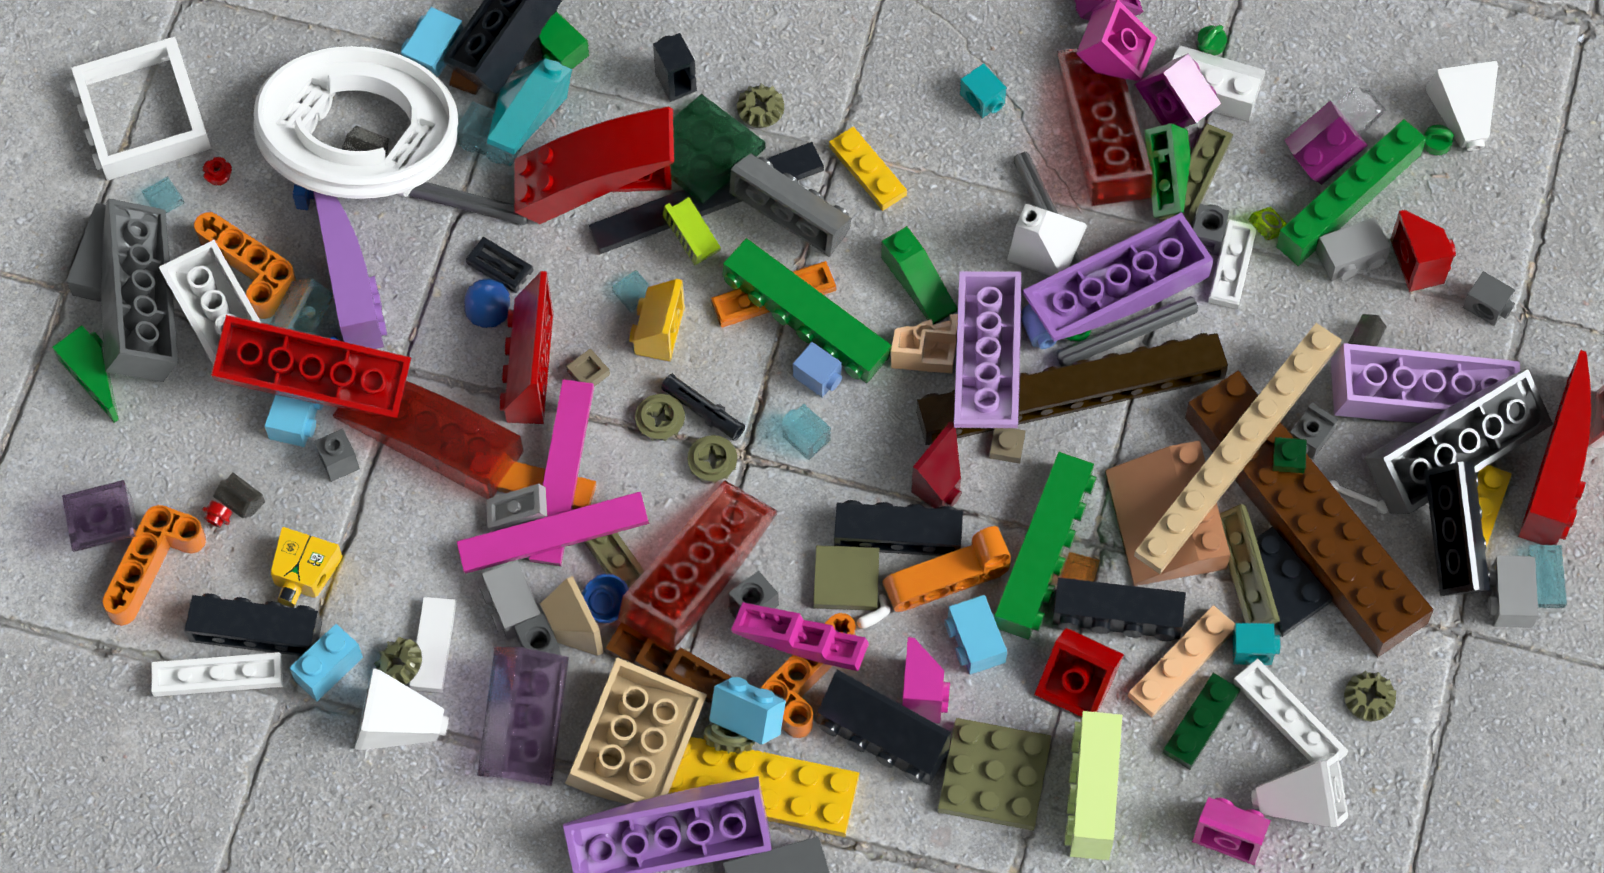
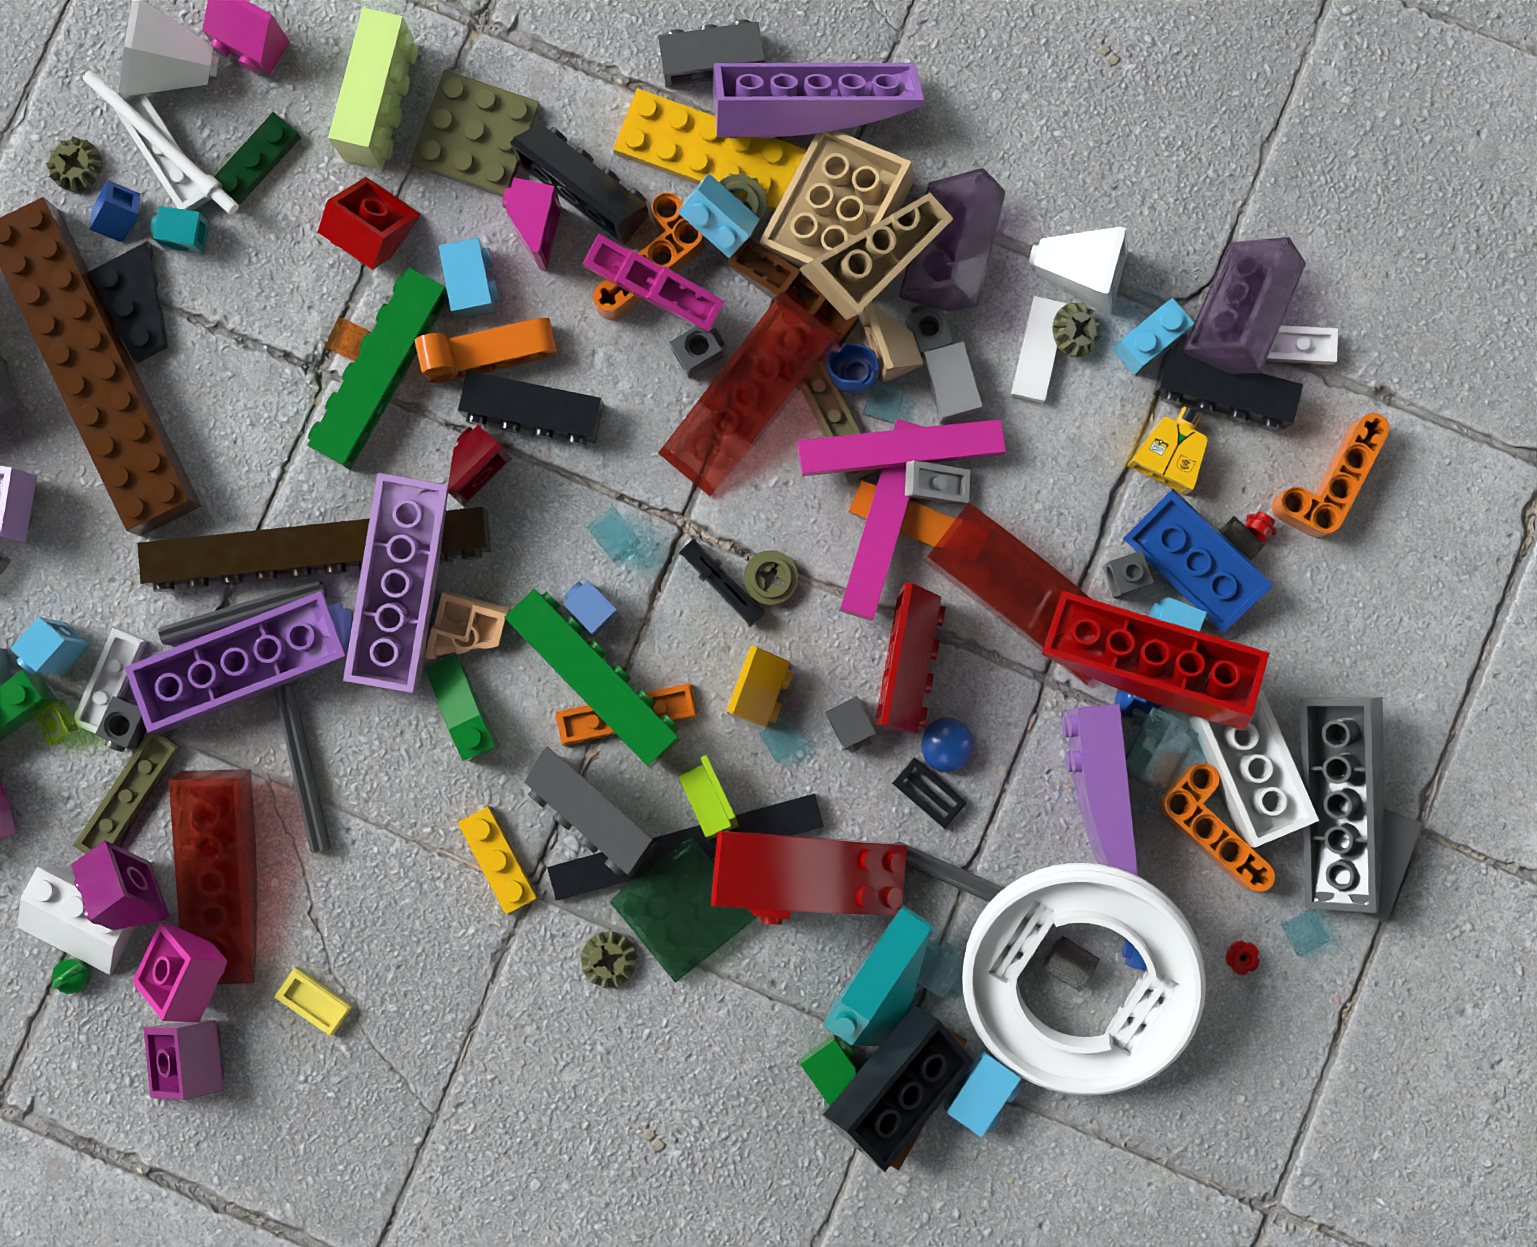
camera: 175 degrees left, 20 degrees up
(84, 359) = (1404, 729): green slope -> none
(100, 515) = (1389, 523): clear purple slope -> none
(152, 153) = (1275, 1065): white window -> none
(242, 693) = (1246, 304): none -> clear purple slope
(273, 472) = (1198, 560): none -> blue plate
(574, 306) = (851, 724): none -> dark grey brick
(581, 573) = (883, 402): none -> clear light blue tile
(588, 368) = (843, 643): dark tan plate -> none
(591, 671) = (869, 261): none -> tan wedge
(674, 66) = (701, 1014): black piece -> none
(721, 448) = (708, 509): olive gear -> none
(846, 578) = (595, 364): olive tile -> none
(875, 616) = (571, 319): white piece -> none
(983, 91) = (347, 938): teal brick -> none
(1004, 46) = (313, 1001): none -> light yellow tile
(1045, 240) = (306, 746): white slope -> none
(1119, 609) = (313, 286): black brick -> none
(1142, 495) = (240, 387): nougat slope -> none
(1170, 164) = (149, 815): green slope -> none
(1182, 661) = (259, 228): light nougat plate -> none
(1234, 680) = (205, 183): none -> white bar
(1237, 448) = (141, 432): tan plate -> none
(1248, 568) = (170, 316): olive tile -> none
(1284, 273) = (49, 647): none -> medium azure brick
(1289, 455) = (90, 413): dark green plate -> none
(1320, 654) = (115, 211): none -> blue panel
(1322, 427) = (70, 472): dark grey brick -> none
(1380, 505) = (14, 374): white hinge -> none

